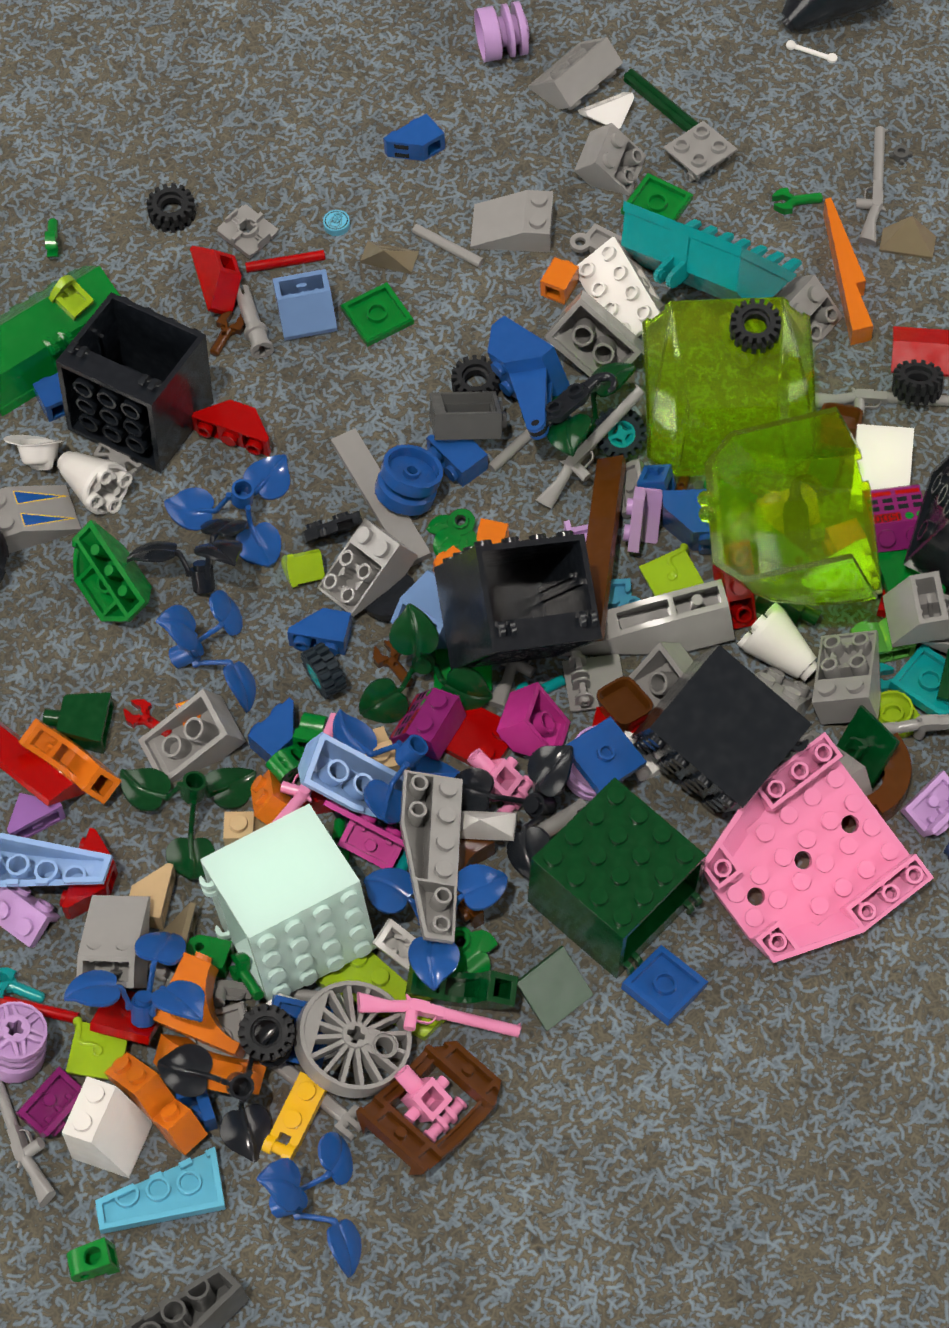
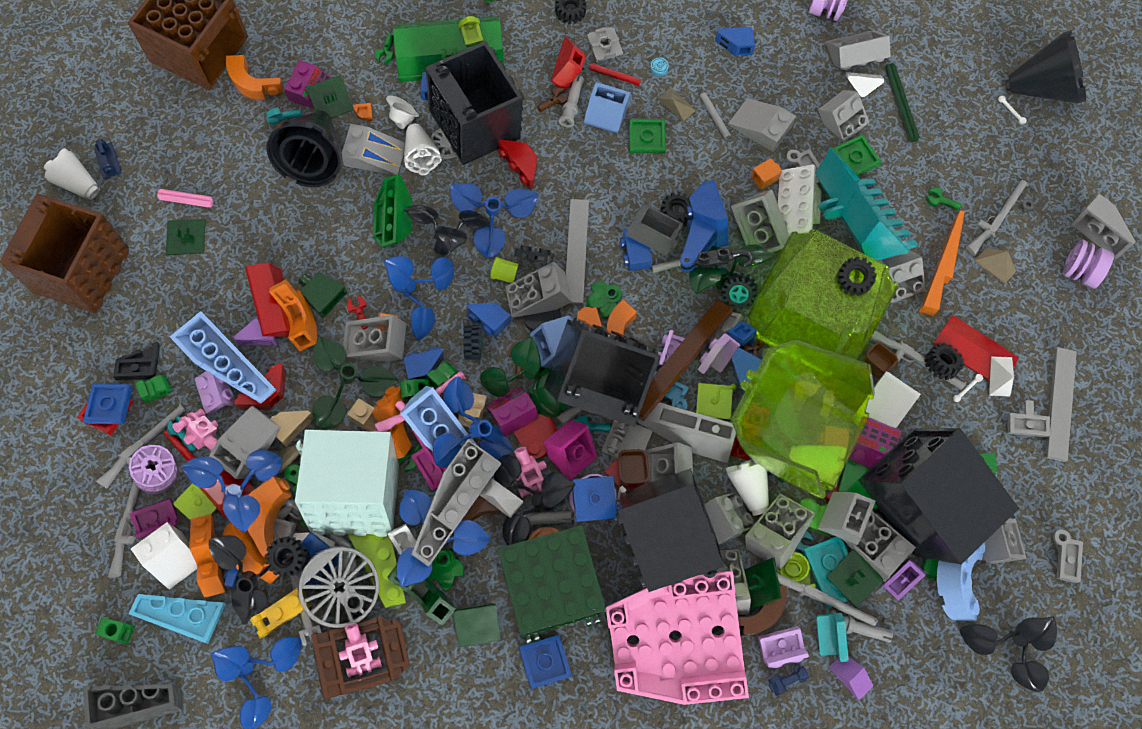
camera: 25 degrees right, 10 degrees up
(38, 966) = (198, 429): none -> bright pink piece
(408, 480) = (596, 251): blue wheel -> none
(417, 1007) = (383, 588): bright pink piece -> none
(573, 464) = (676, 306): light grey piece -> none
(700, 150) = (903, 137): light grey hinge -> none

